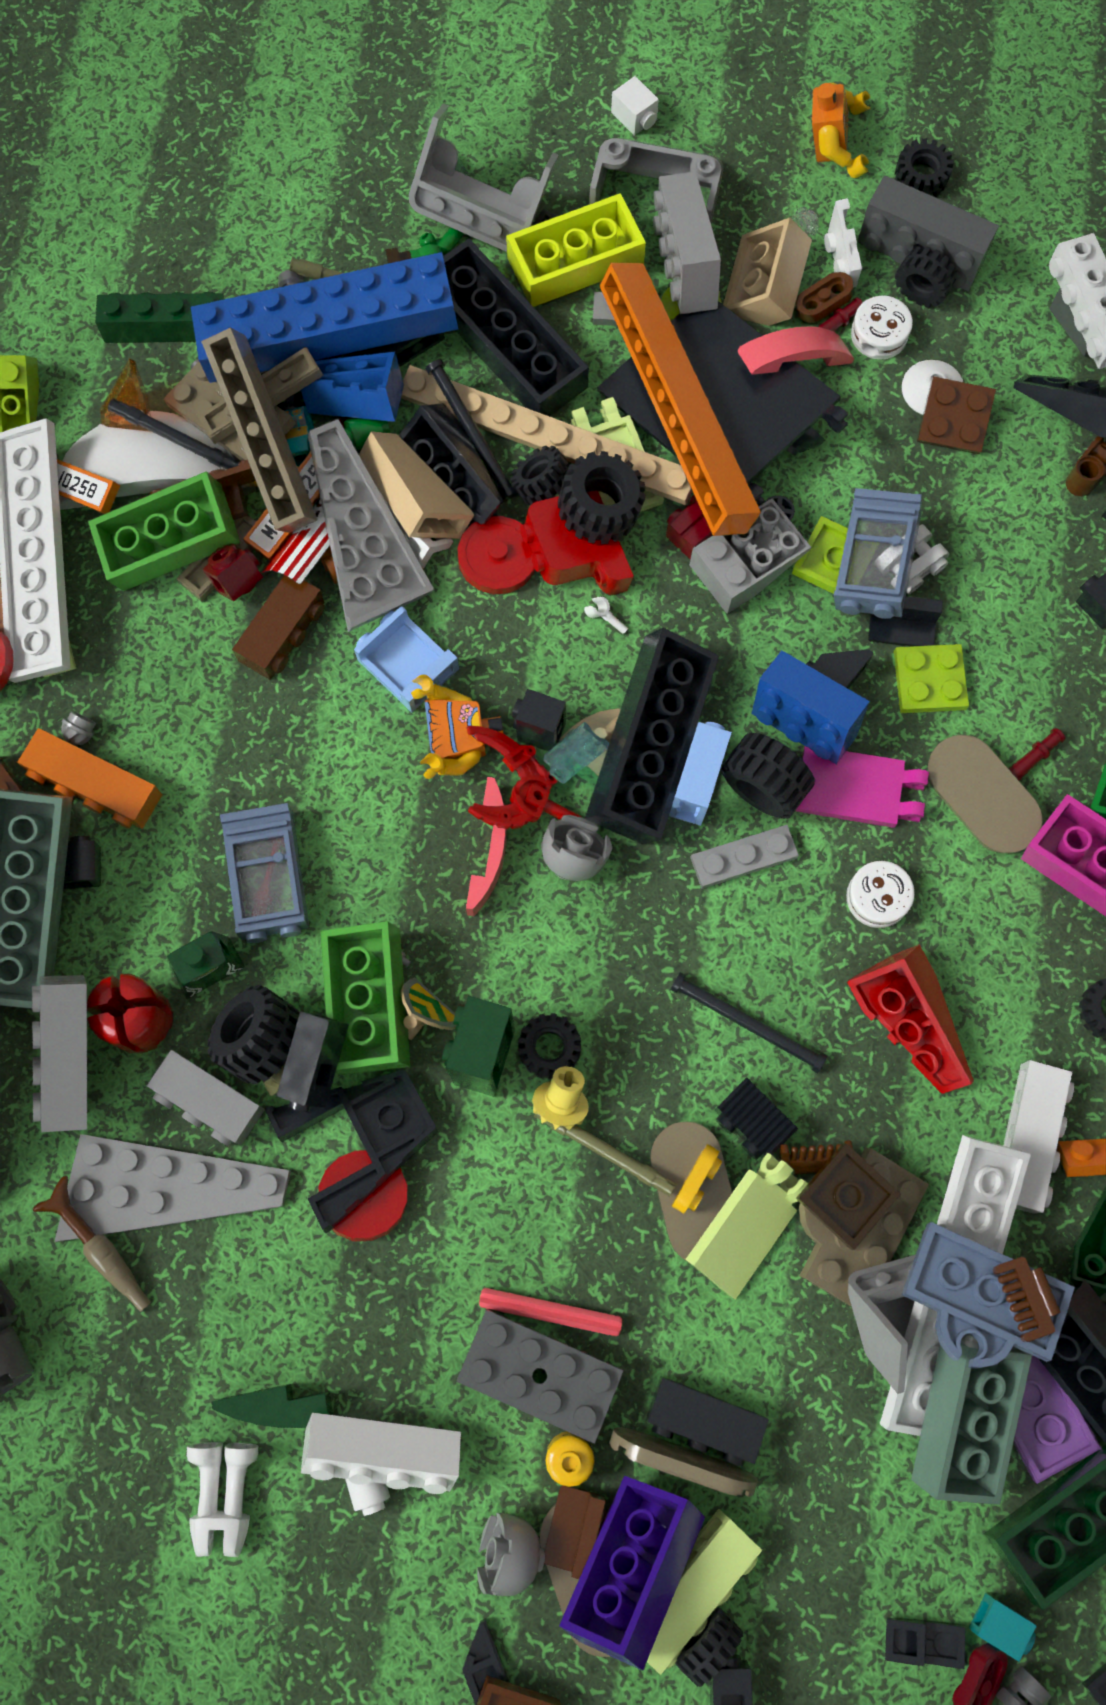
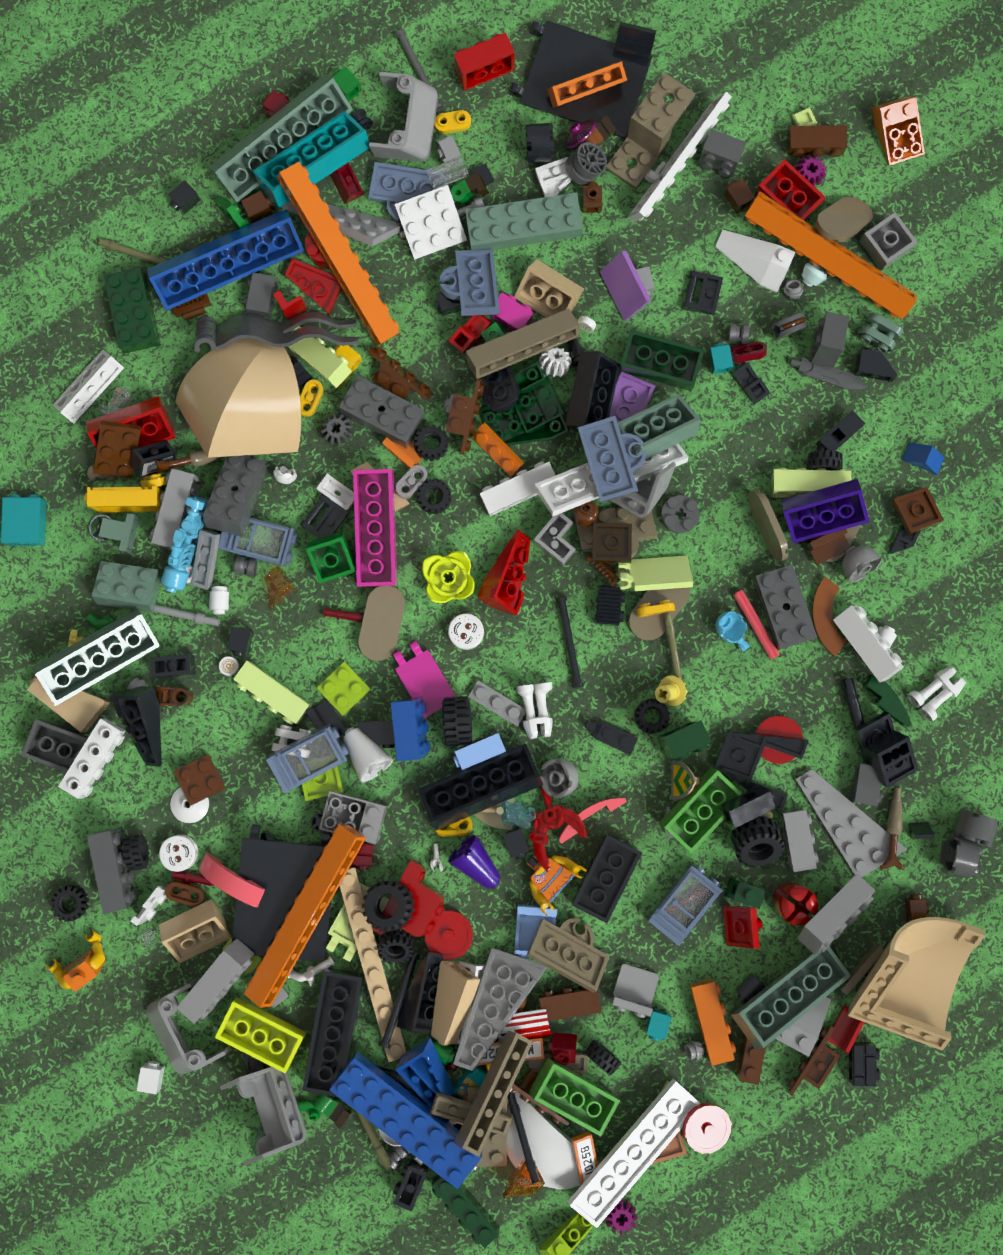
camera: 125 degrees left, 10 degrees up
(59, 1285) = (920, 830): none -> black slope
(151, 710) = (658, 1025): none -> teal brick
(167, 918) = (741, 926): none -> red tile
(177, 606) = (602, 1057): none -> black tyre
(189, 1266) = (866, 785): none -> dark grey brick
(211, 1336) = (886, 749): none -> black bracket
(218, 716) = (634, 990): none -> light grey bracket
(244, 268) = (411, 1184): none -> black brick
(318, 1353) = (853, 702): none -> black pin
(341, 671) = (569, 952): none -> dark tan plate
(391, 798) = (606, 878): none -> black brick
(478, 1424) = (823, 619): none -> dark orange tile
(558, 652) = (475, 863): none -> dark purple cone
(568, 970) = (612, 736): none -> black hinge
(569, 1459) = (806, 569): yellow head -> none
(575, 1266) = (732, 629): none -> medium azure hair
(598, 364) = (311, 971): none -> white piece
(623, 666) = (455, 830): none -> yellow plate
(706, 1422) = (744, 528): black brick -> none
(726, 902) = (543, 719): none -> white piece
(817, 629) = (365, 754): none -> white cone
(827, 1344) = (671, 520): none -> dark grey plate
(922, 1195) = (585, 514): none -> reddish brown head
(923, 1119) = (551, 539): none -> light grey brick
(1001, 584) = (272, 692): none -> yellowish green brick
(1004, 925) = (437, 567): none -> neon yellow brick
(1037, 1297) = (595, 438): reddish brown piece -> none
(1079, 563) = (229, 666): none -> white tile

